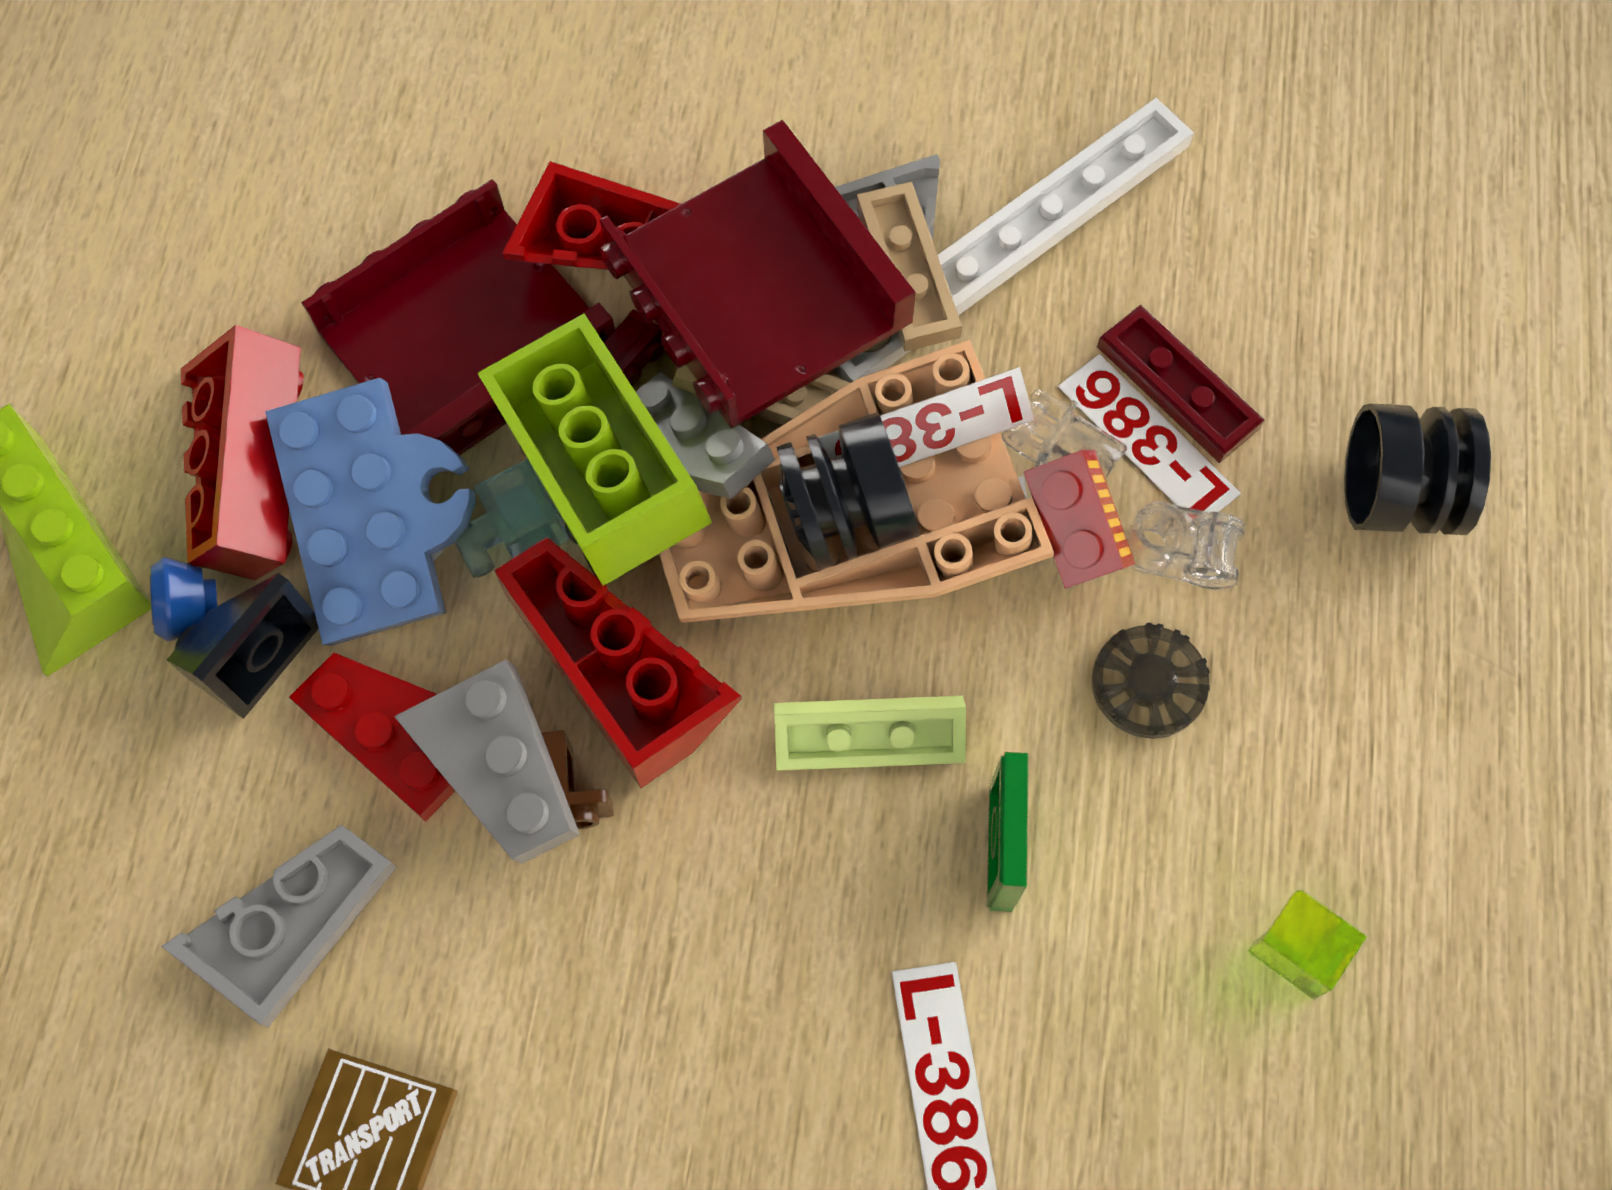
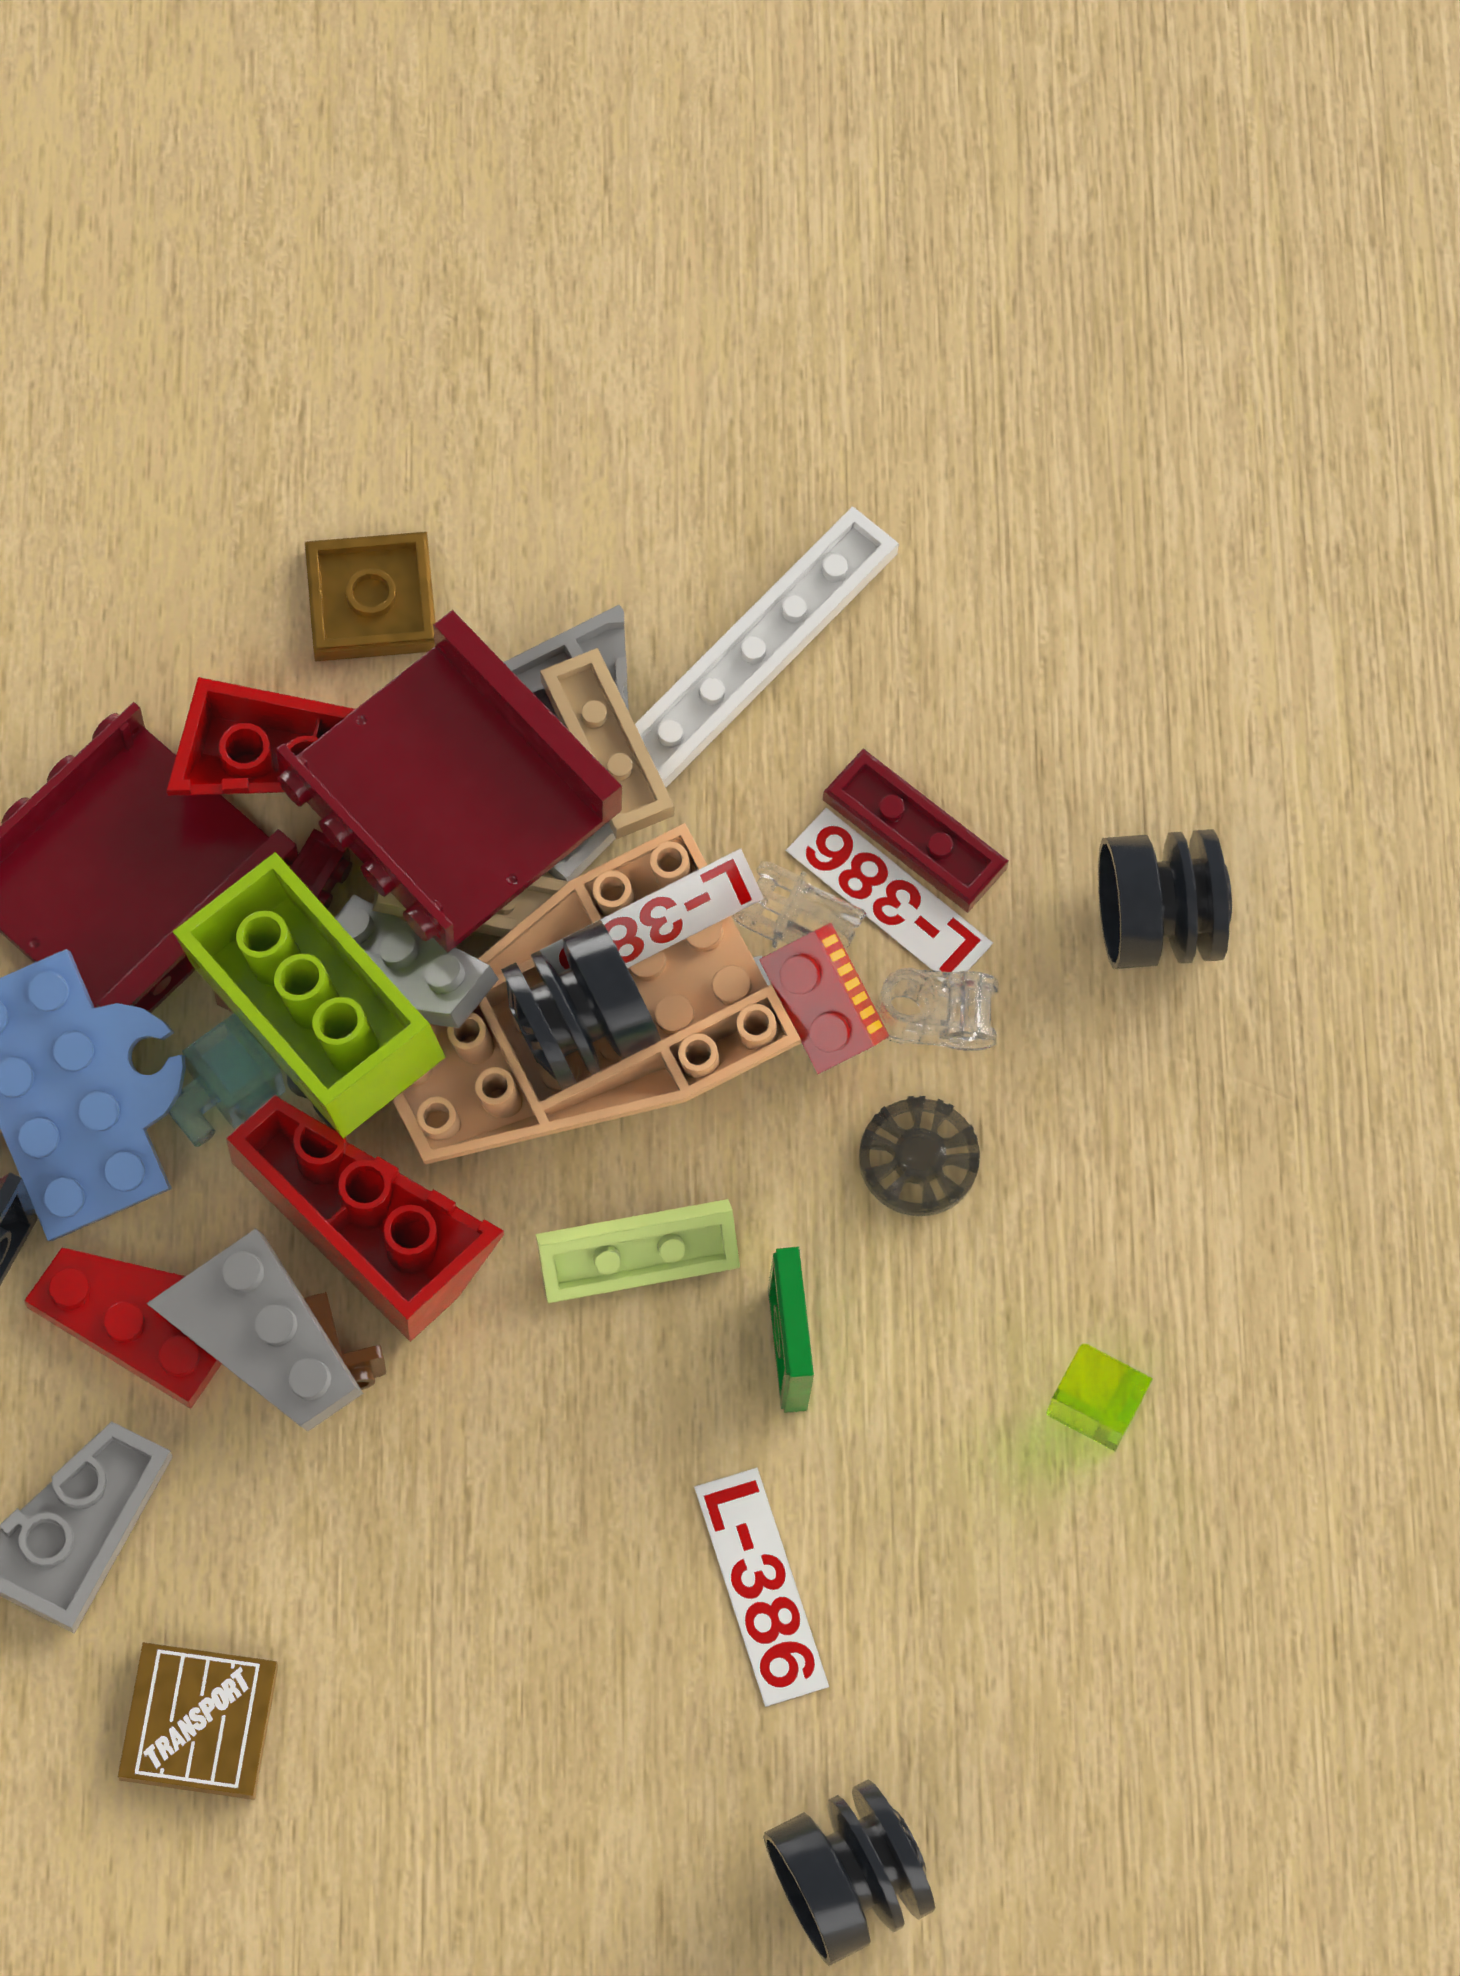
camera: 15 degrees left, 0 degrees up
(717, 123) = (370, 596): none -> pearl gold tile

